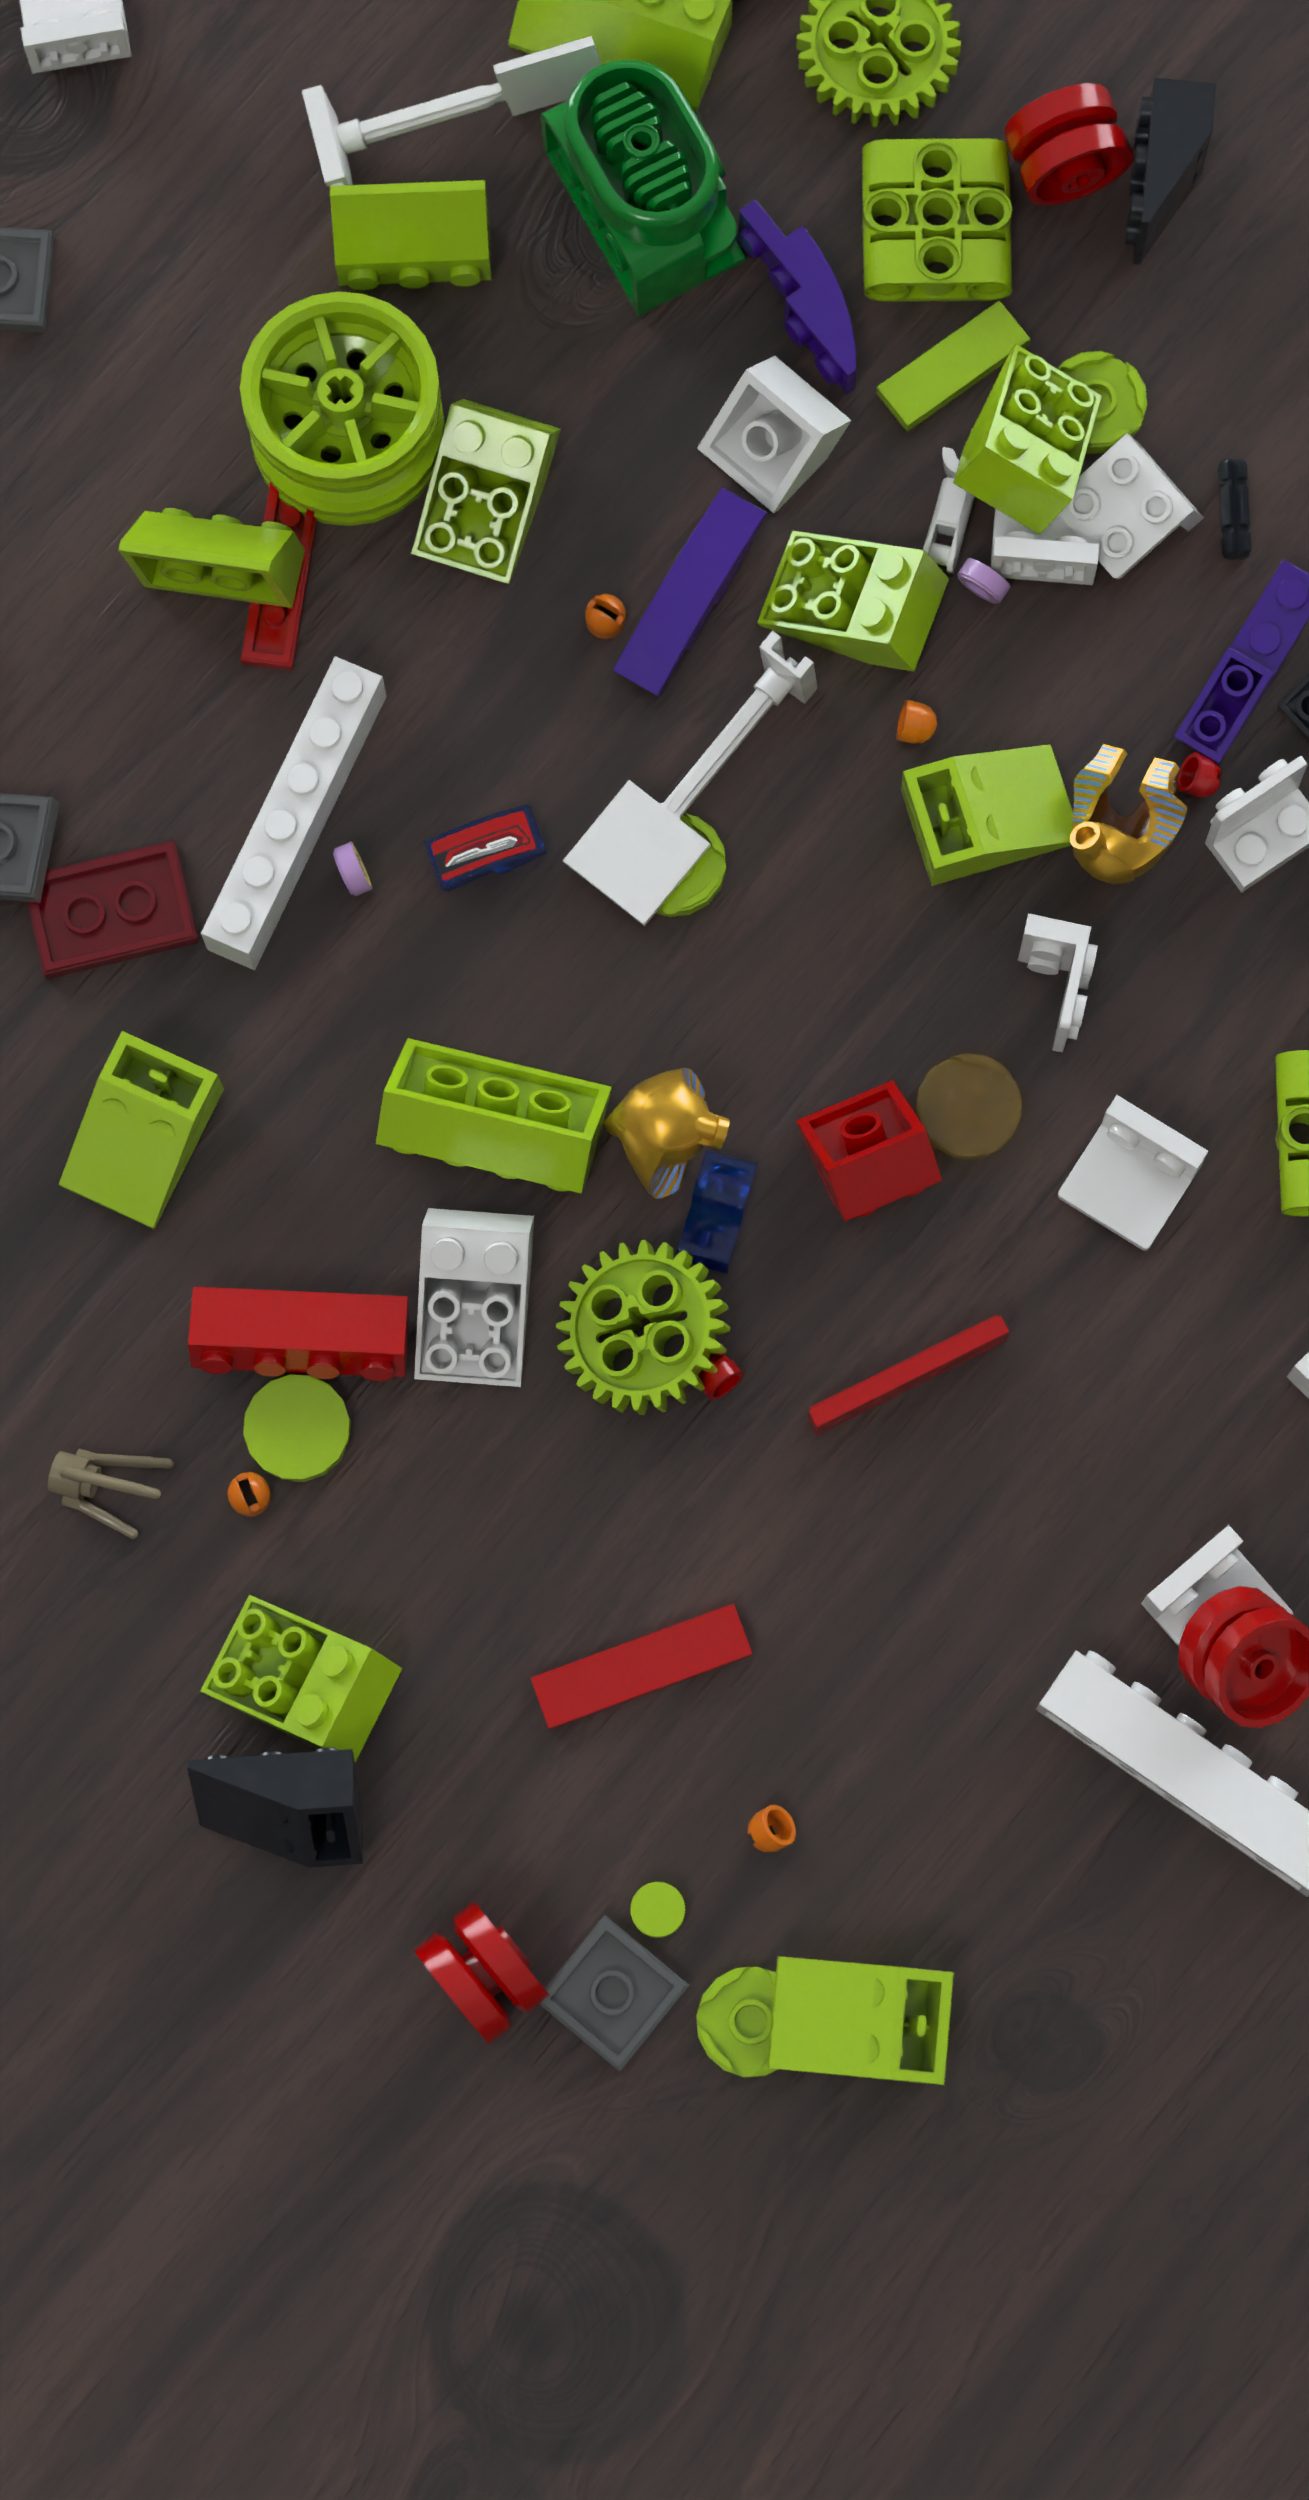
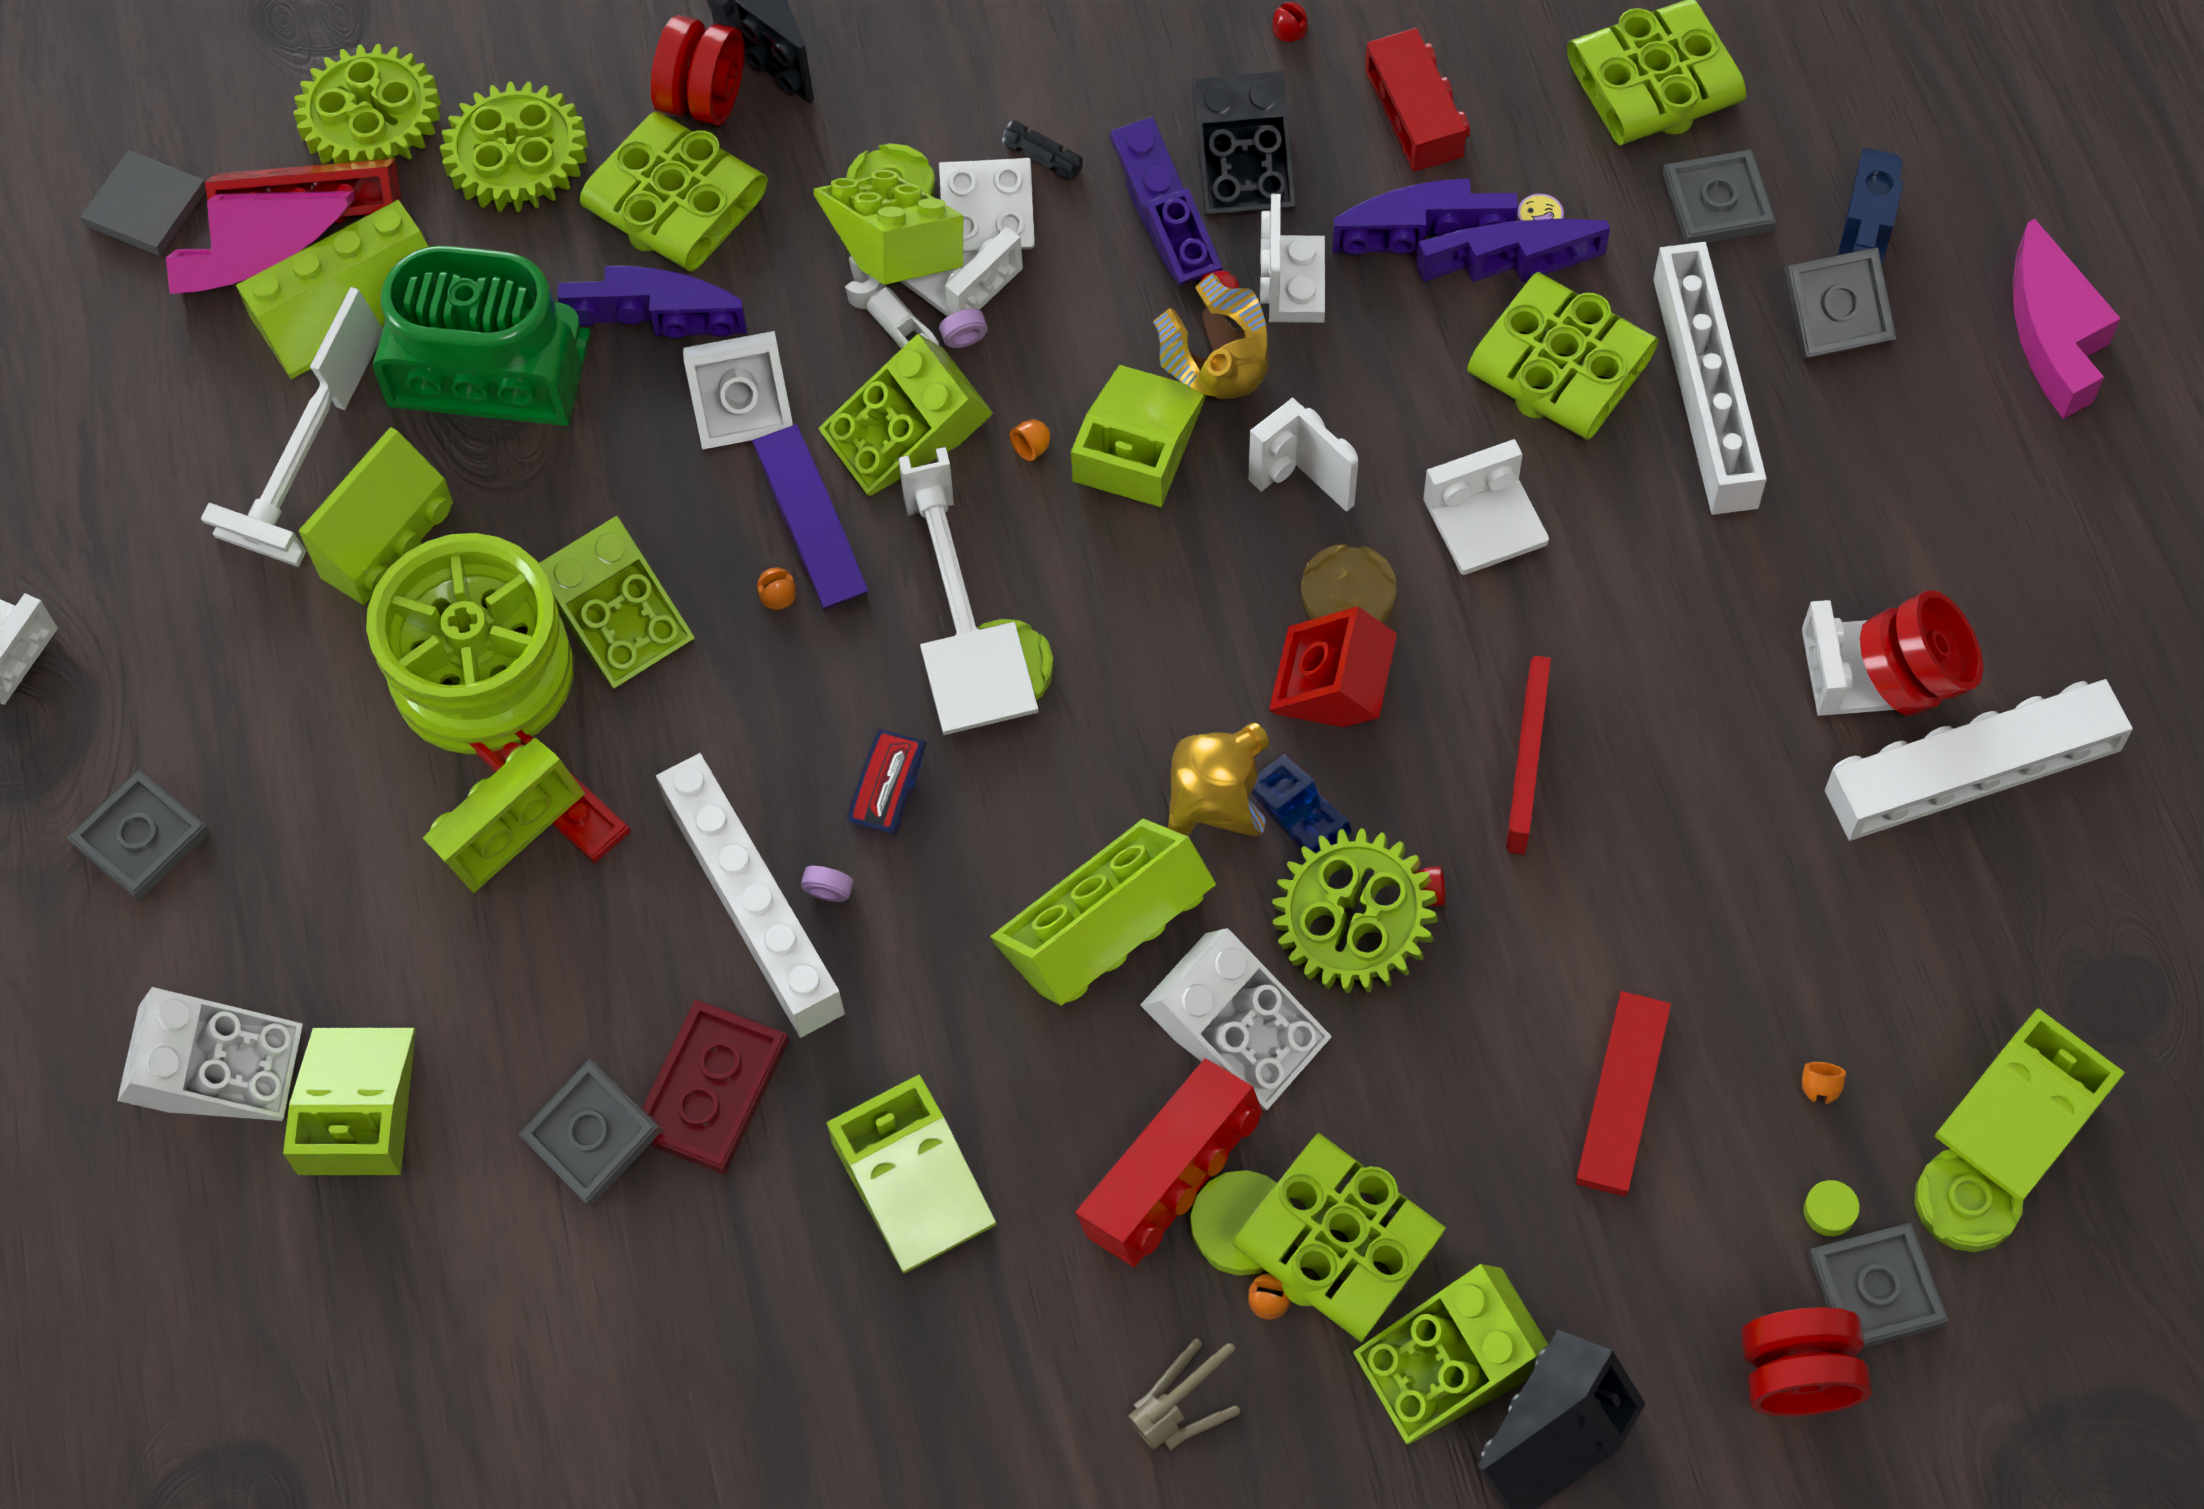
camera: 55 degrees left, 15 degrees down
(293, 1460) = (1314, 1182): none -> lime connector
(952, 366) = (787, 252): lime tile -> none

